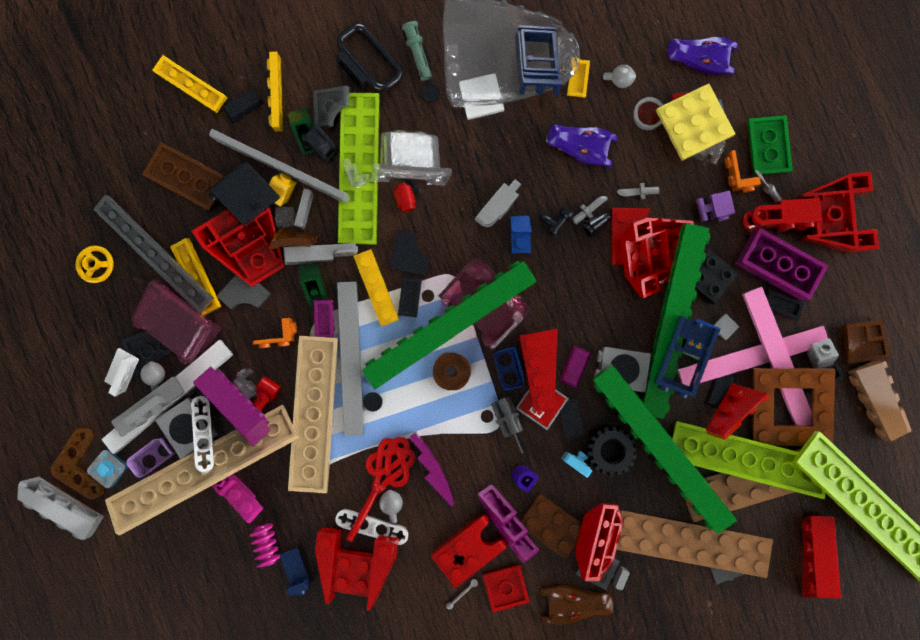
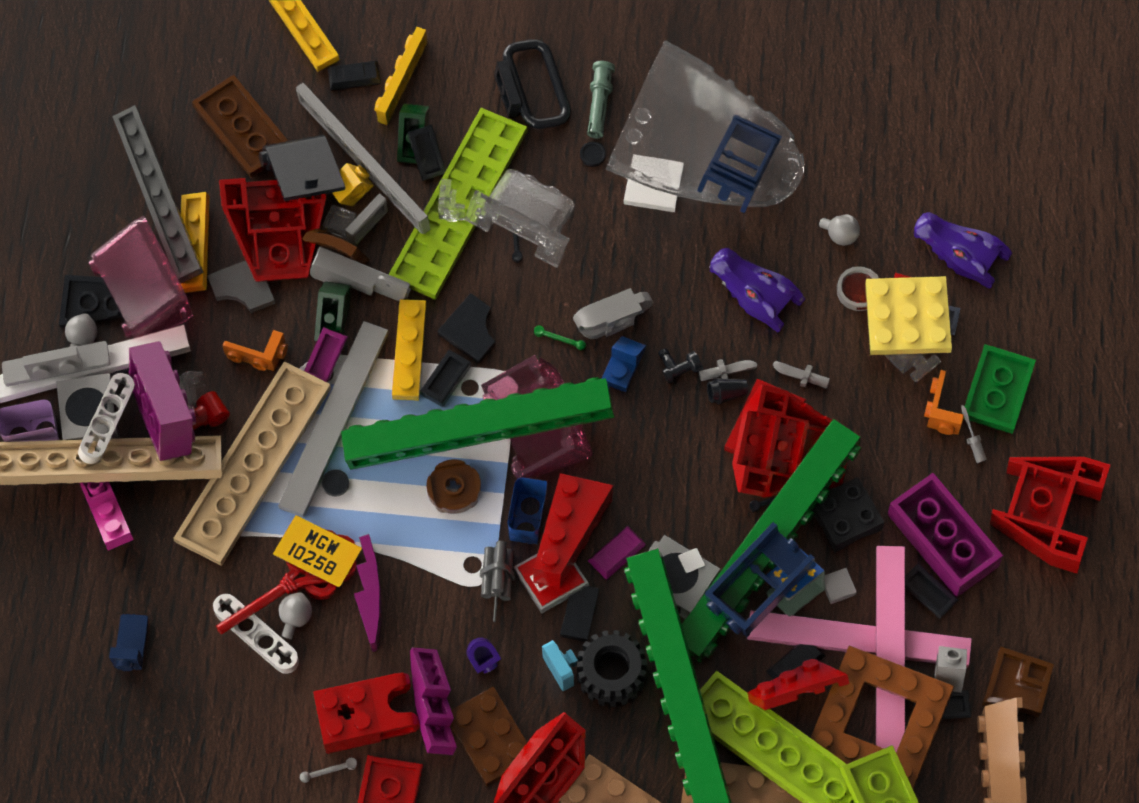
camera: 30 degrees right, 20 degrees down
(87, 261) = (74, 168): yellow piece -> none
(121, 372) = (44, 312): white panel -> none
(264, 545) = (106, 592): dark pink piece -> none
(328, 104) = (458, 114): dark grey tile -> none
(353, 570) = (206, 673): red wedge -> none
(385, 457) = (317, 551): none -> yellow sticker
(404, 197) = (498, 258): red brick -> none
(454, 236) = (539, 332): none -> green hinge
(578, 82) = (787, 212): yellow tile -> none
(630, 356) = (691, 560): none -> white sticker
(718, 205) = (897, 432): medium lavender brick -> none
(785, 215) = (974, 473): red brick -> none

